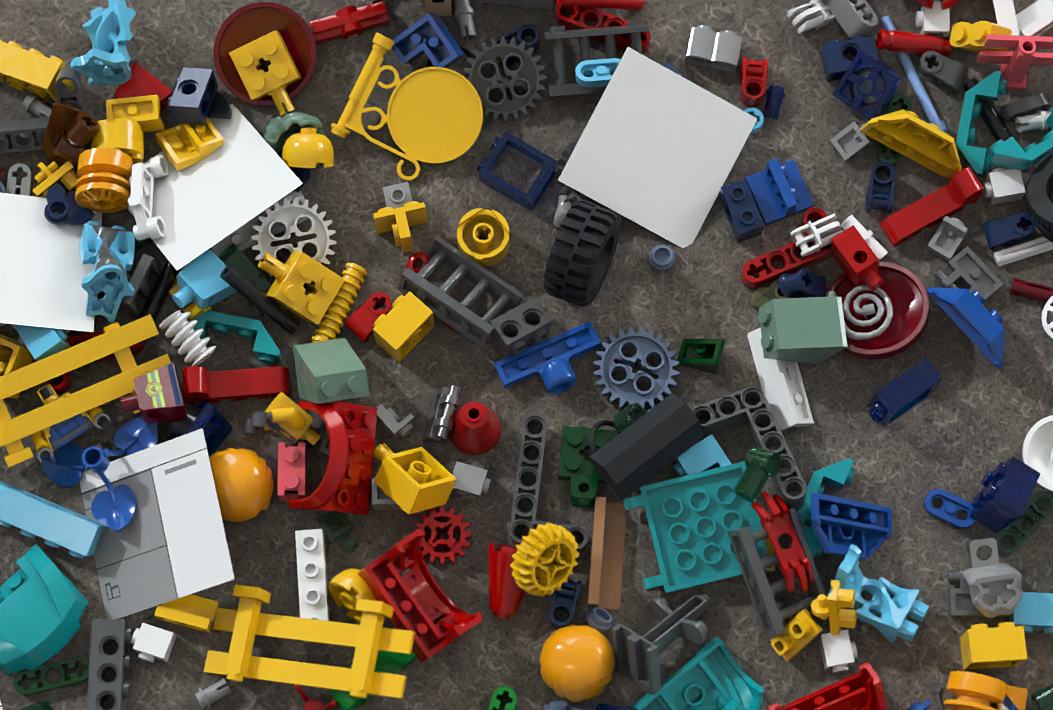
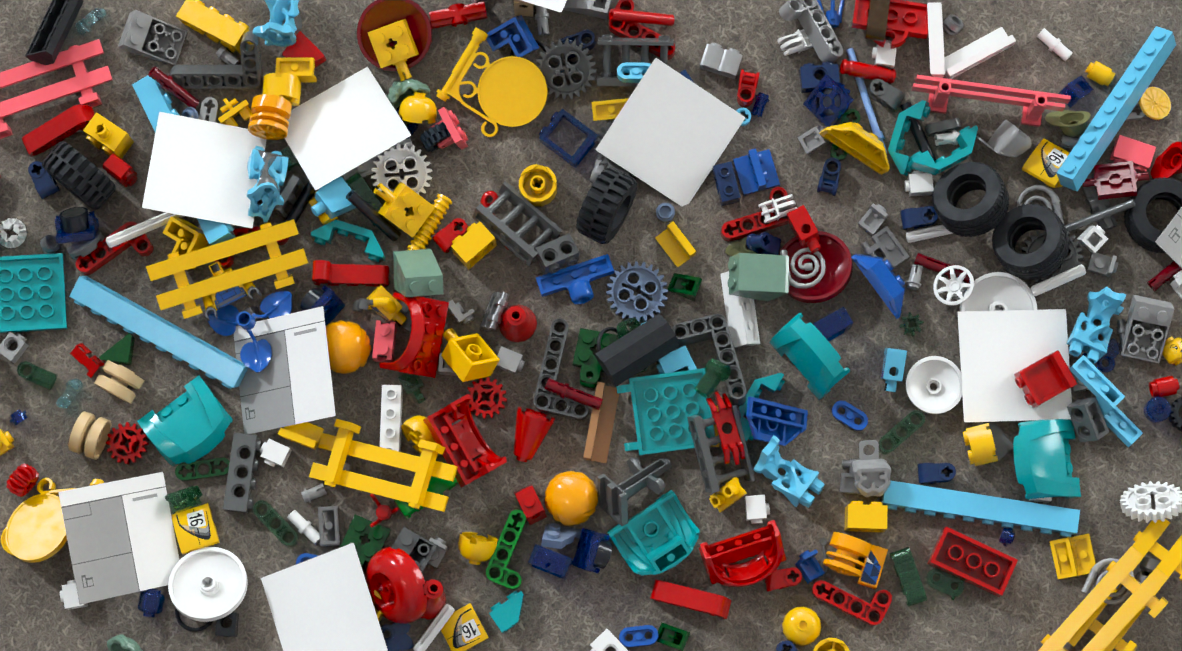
camera: 10 degrees right, 5 degrees up
(65, 204) = (241, 132): dark blue plate -> none
(67, 134) = (246, 80): reddish brown panel -> none
(142, 197) = (295, 132): white plate -> none
(157, 396) = (293, 279): dark red torso -> none
(187, 337) = (319, 239): white piece -> none
(189, 143) = (334, 92): yellow slope -> none
(193, 96) = (339, 60): dark blue brick -> none
(220, 107) = (356, 68): black tile -> none
(347, 179) = (444, 133): none -> plate
(397, 195) = (479, 152): light grey brick -> none
(399, 221) = (478, 168): yellow bracket -> none
(521, 677) = (530, 504): none -> red torso
(544, 559) = (555, 424): yellow gear -> none
(564, 516) = (579, 396): none -> dark red pin
(566, 601) = (568, 451): dark blue piece -> none
(567, 126) = (607, 109): none -> yellow panel
(599, 619) = (590, 469): sand blue plate -> none
(682, 299) = (675, 244): none -> yellow panel
(832, 607) = (757, 479): yellow hips -> none
(875, 246) = (814, 213): white pin -> none
(889, 428) = (810, 354): none -> teal piece
(929, 210) = (865, 195): red beam -> none
(972, 36) = (909, 70): yellow brick -> none
(1002, 422) = (897, 359): none -> medium azure torso
(1004, 494) = (888, 410): clear blue brick -> none
(1011, 373) = (911, 330): none -> clear green gear
(1014, 312) = (914, 278): none -> light grey pin

